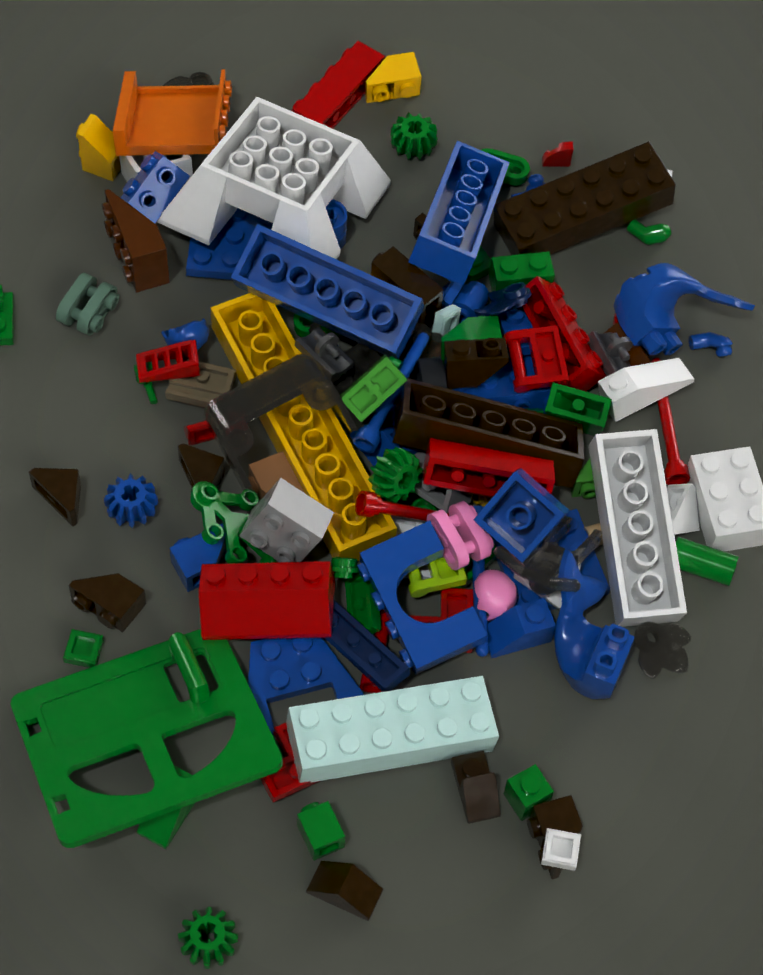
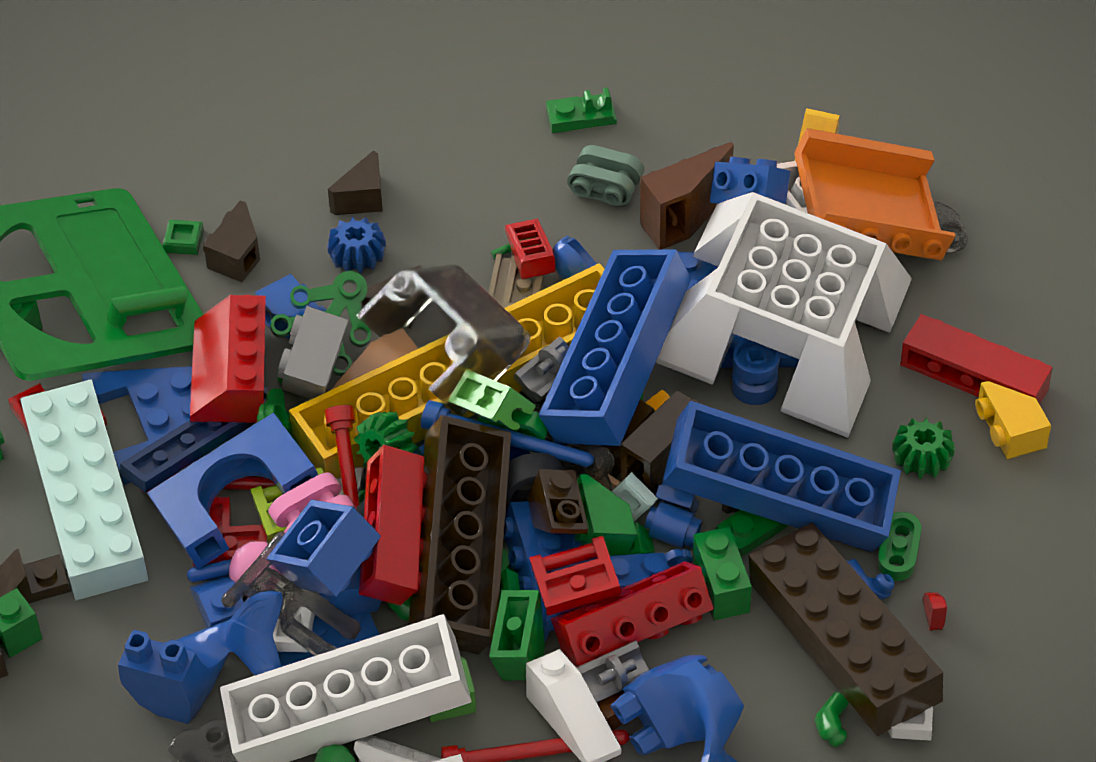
camera: 90 degrees right, 10 degrees down
(505, 299) = (666, 546): dark blue plate -> none

